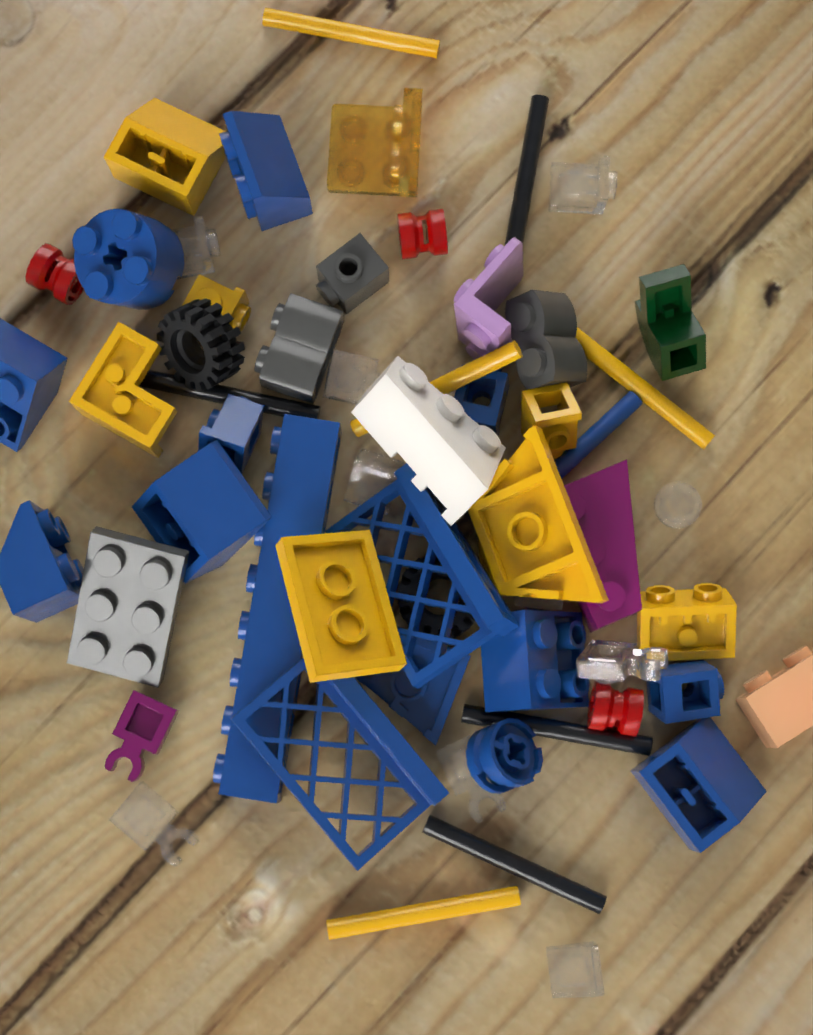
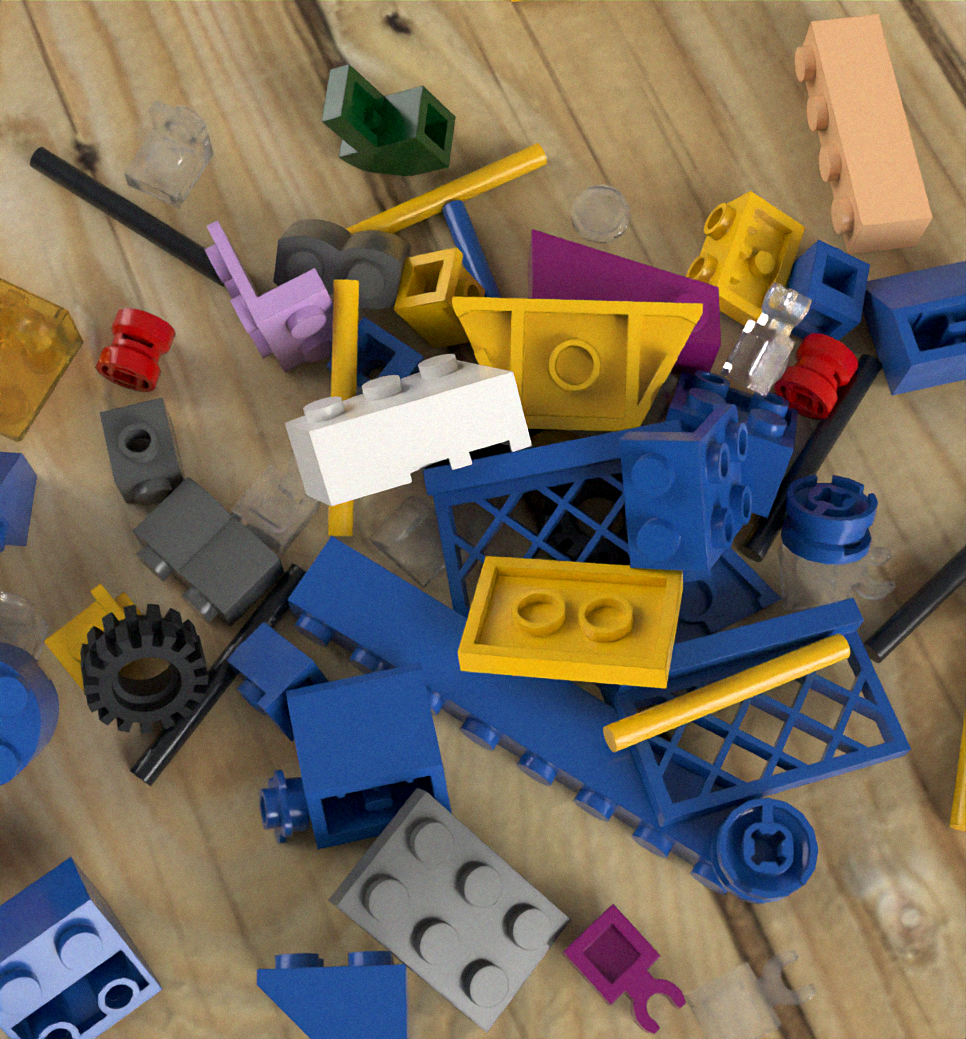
camera: 70 degrees left, 10 degrees down
(113, 395) = (163, 812): yellow panel -> none
(152, 471) = (284, 806): none -> blue plate
(238, 792) = (764, 851): none -> blue wheel
(340, 729) = (725, 692): none -> yellow bar
(455, 651) = (685, 492): none -> blue bracket

